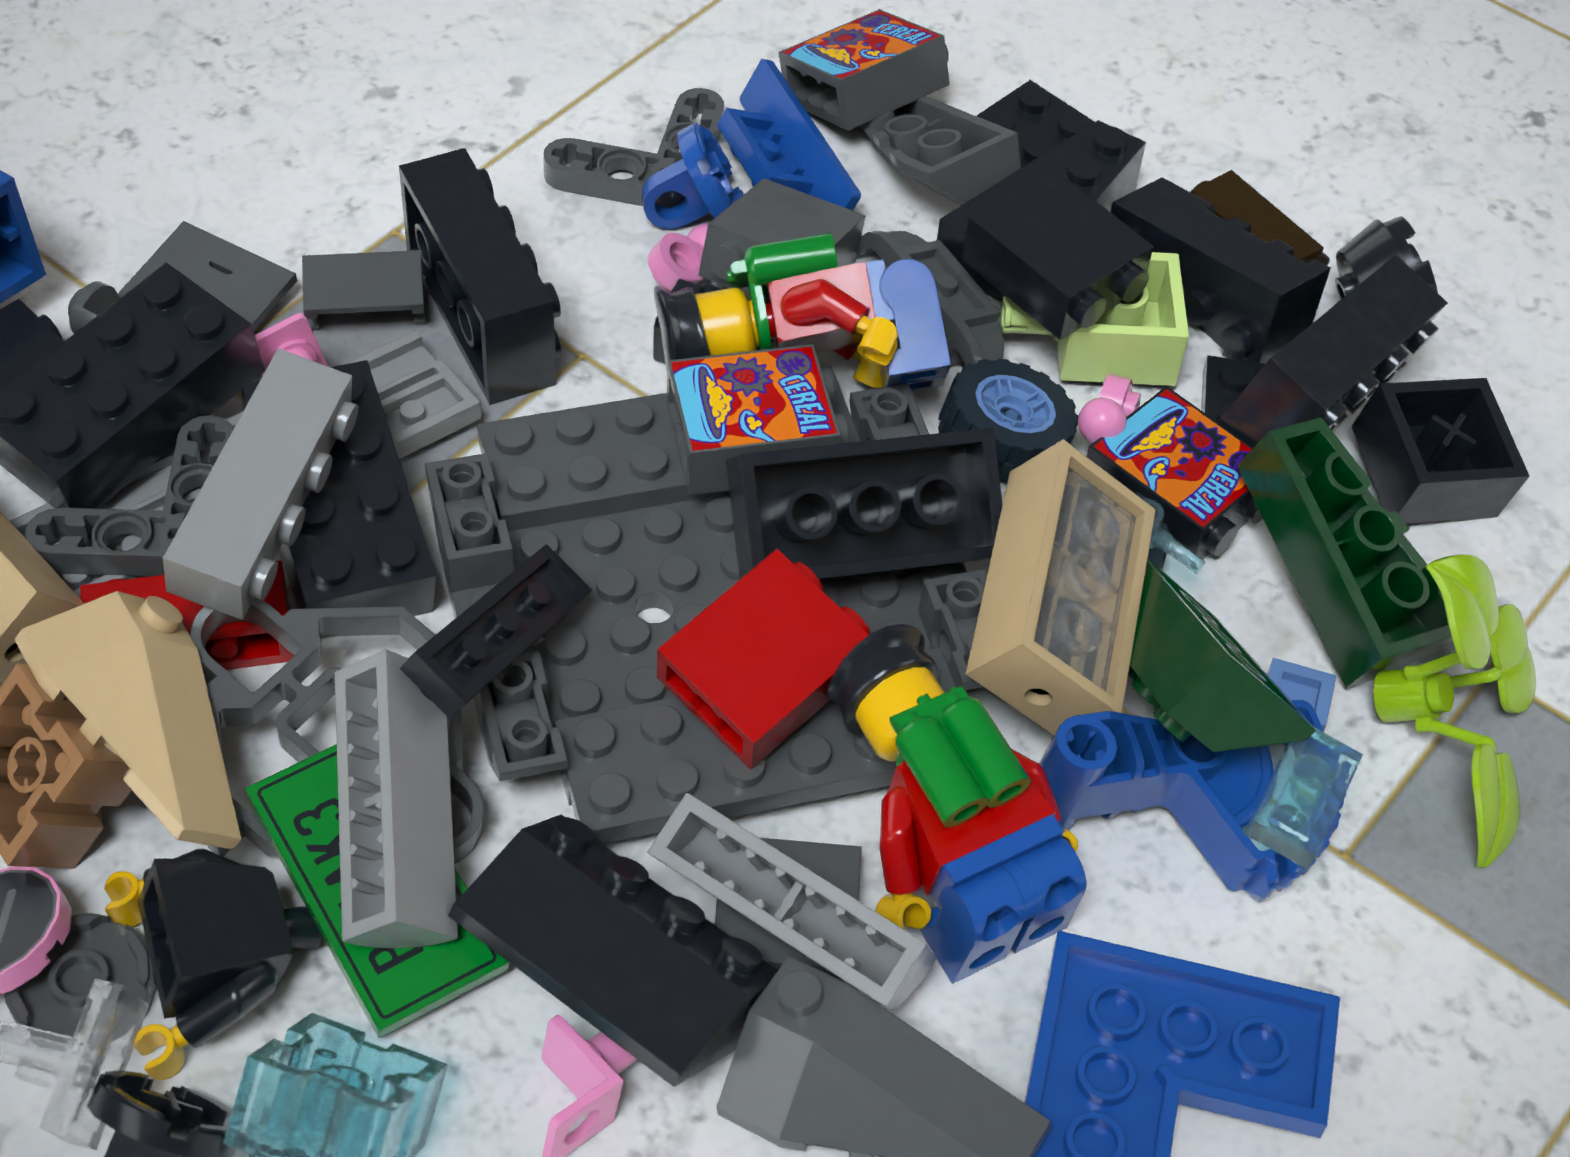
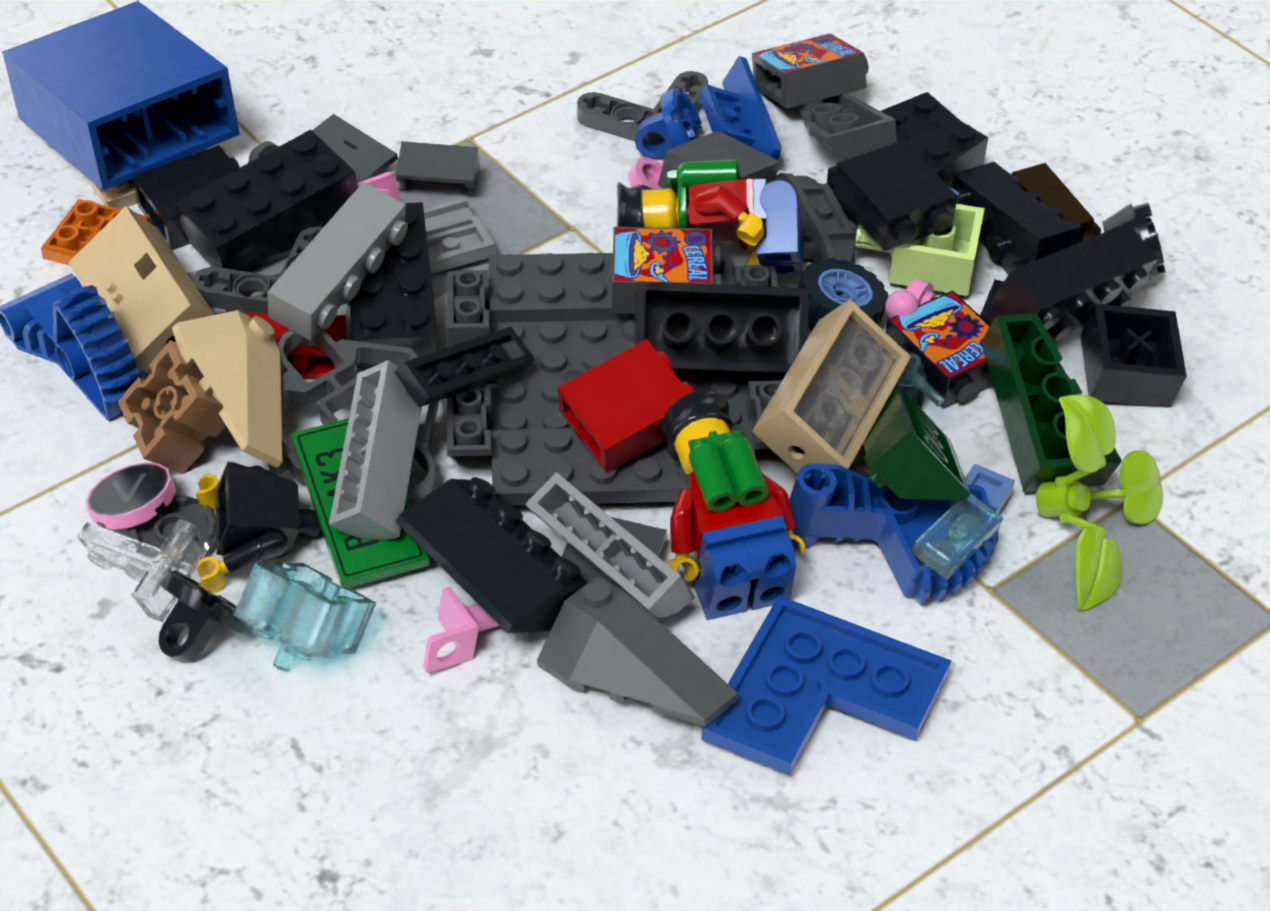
camera: 15 degrees right, 5 degrees down
(481, 275) = (513, 167): black brick -> none

